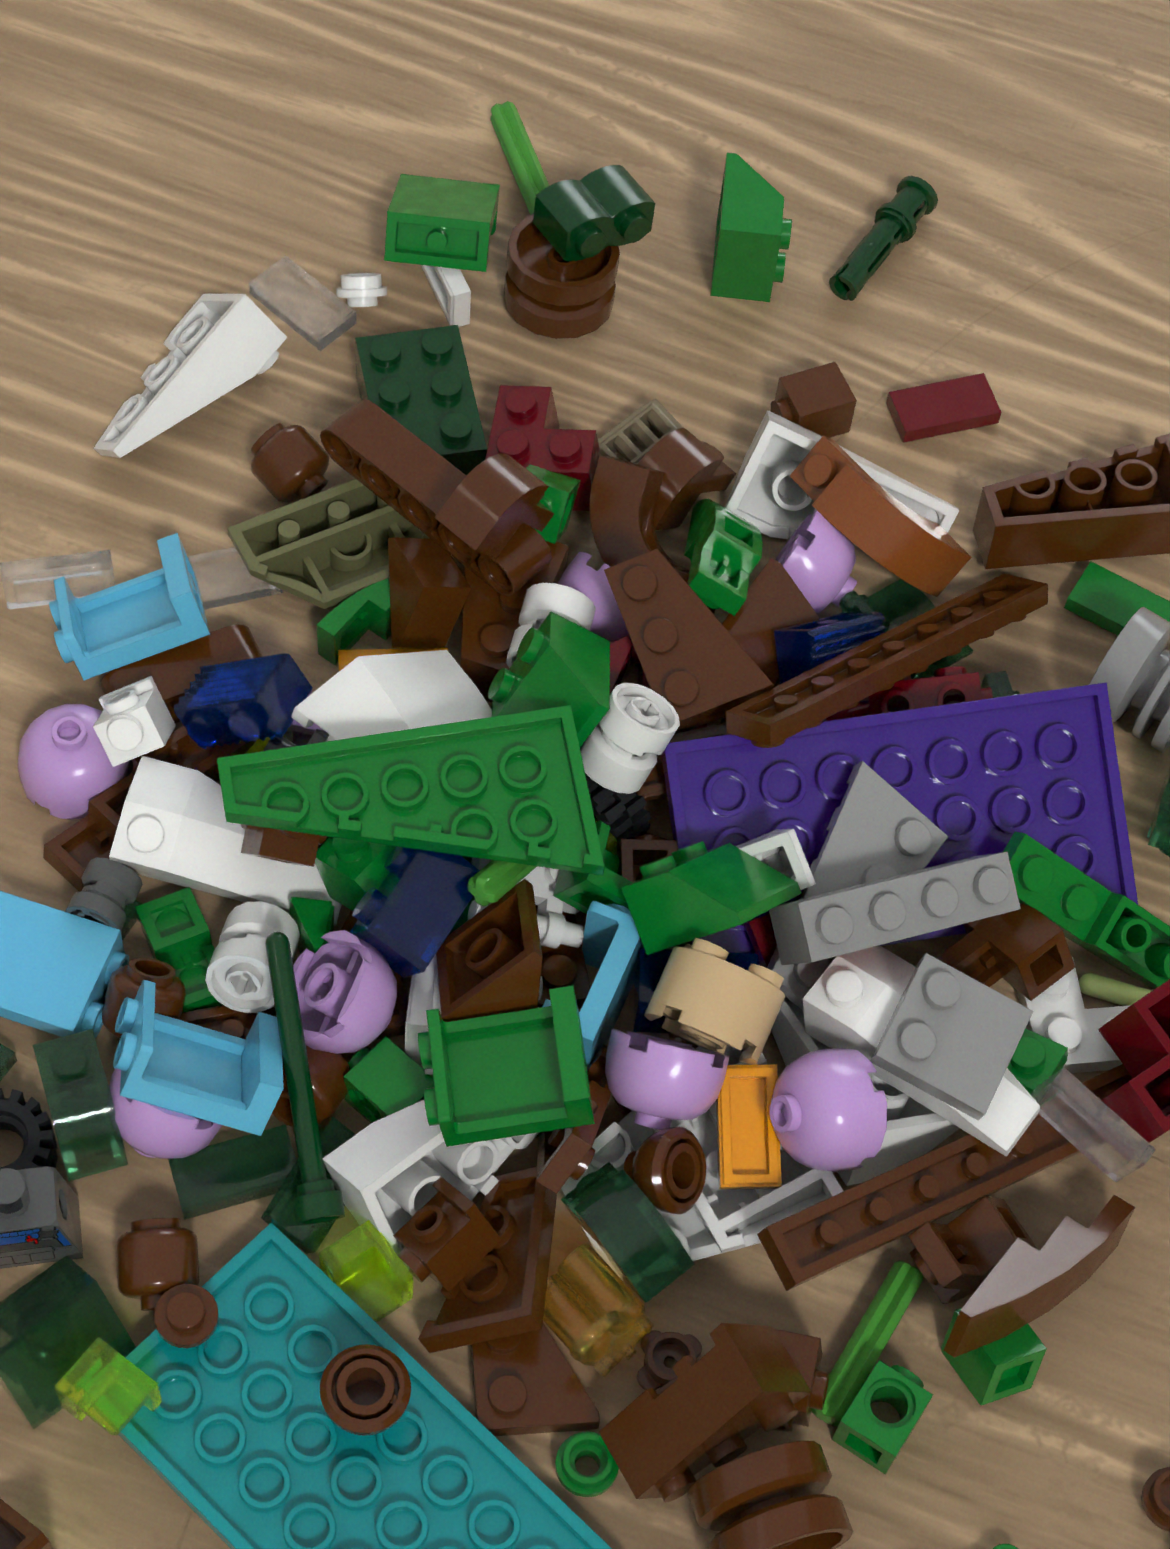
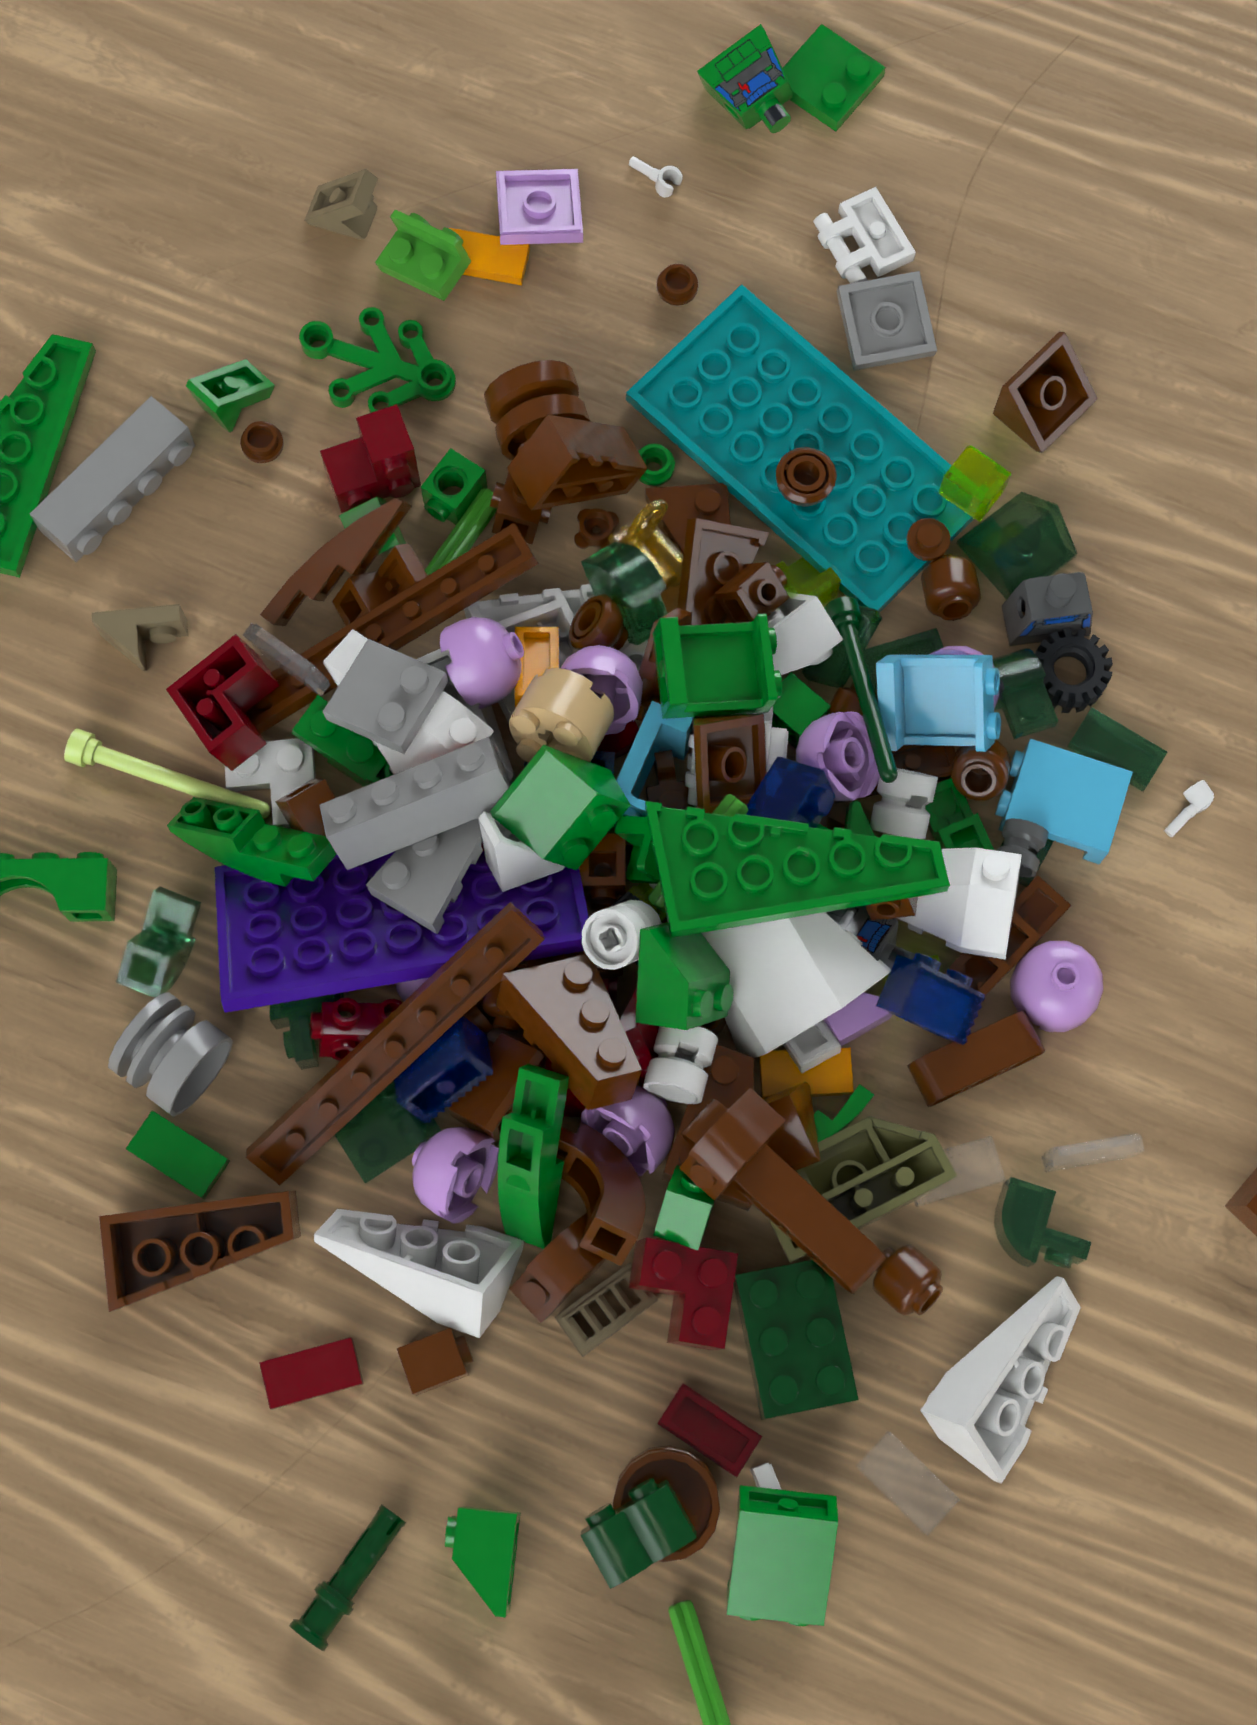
camera: 175 degrees left, 15 degrees up
(131, 617) = (1029, 1104): medium azure panel -> none
(133, 721) = (1015, 988): white brick -> none
(141, 503) = (1022, 1228): none -> clear green brick
(361, 289) = (854, 1491): white plate -> none
(513, 350) = (709, 1430): none -> dark red tile
(878, 522) = (400, 1196): dark orange arch -> none
(1005, 1441) = (374, 464): none -> dark red brick

